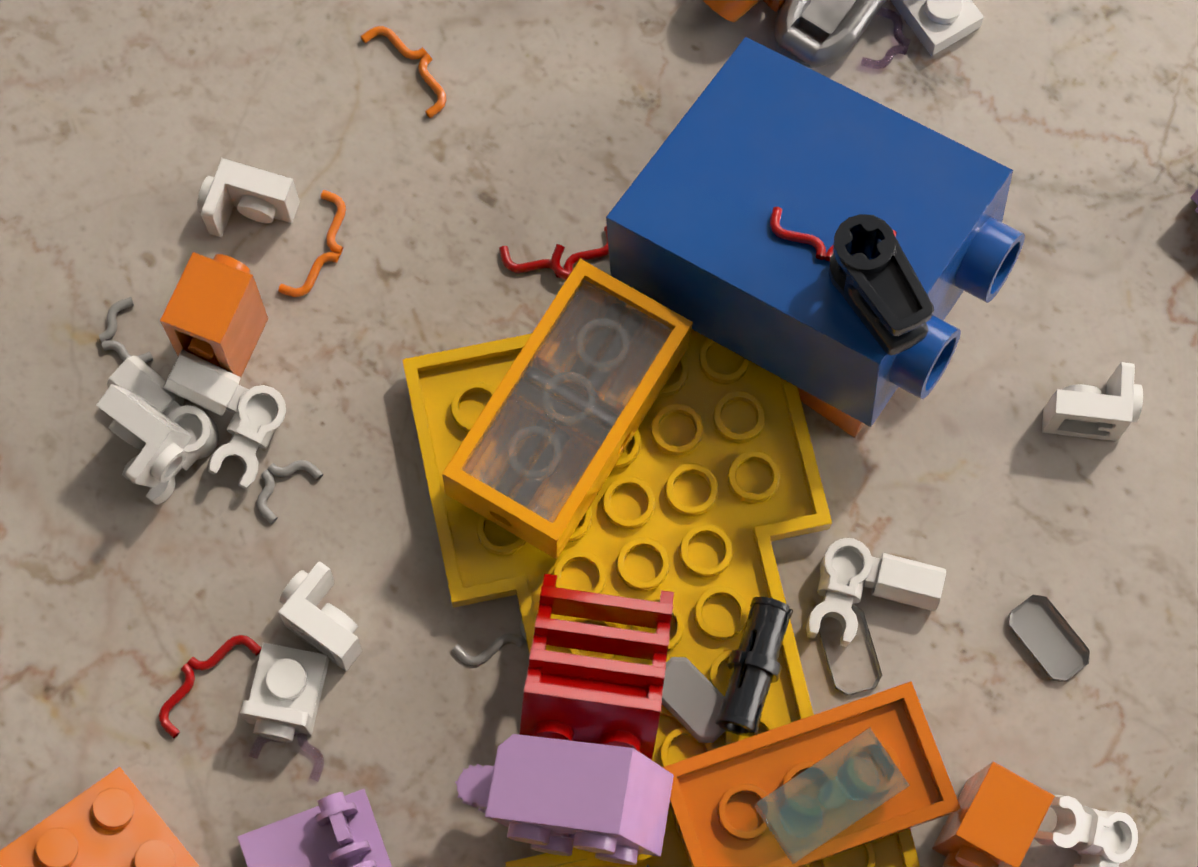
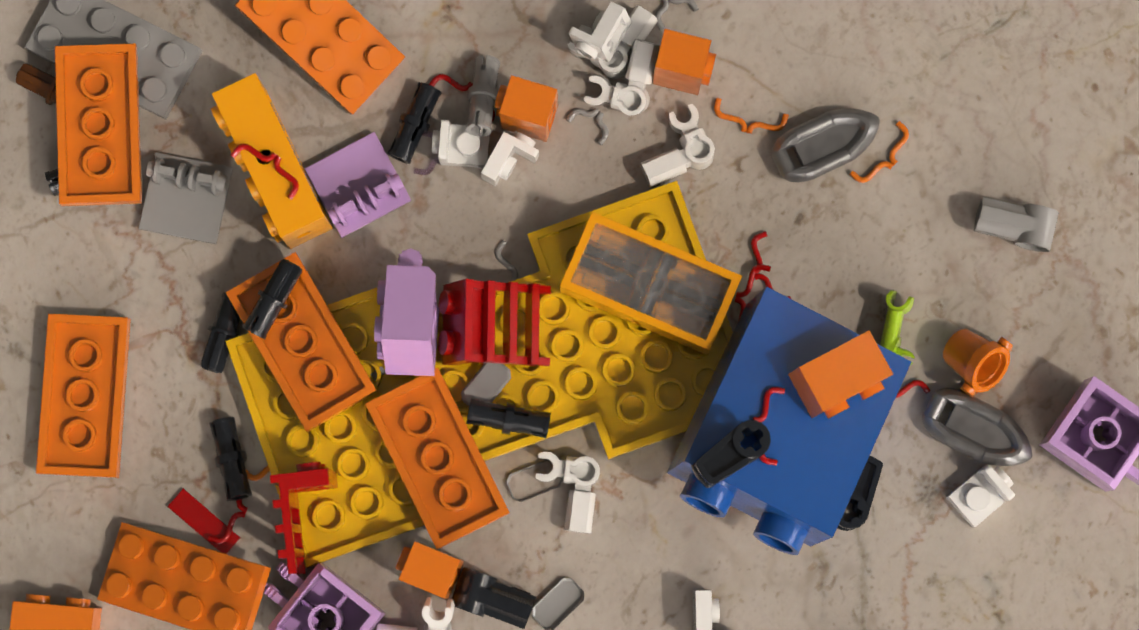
camera: 90 degrees right, 10 degrees up
(211, 643) = (482, 95): none -> light grey pin
(234, 766) = (414, 123): none -> black pin
(246, 567) = (527, 107): none -> orange brick
(253, 191) = (771, 74): white bracket -> none
(360, 327) = (696, 151): none -> white bar
(379, 142) = (824, 143): none -> flat silver piece
(667, 81) = (891, 332): none -> lime piece
(765, 121) = (841, 374): none -> orange brick
(831, 795) = (431, 468): clear light blue plate -> none
(899, 37) = (944, 470): clear purple piece -> none
(1042, 728) = (484, 595): none -> black piece

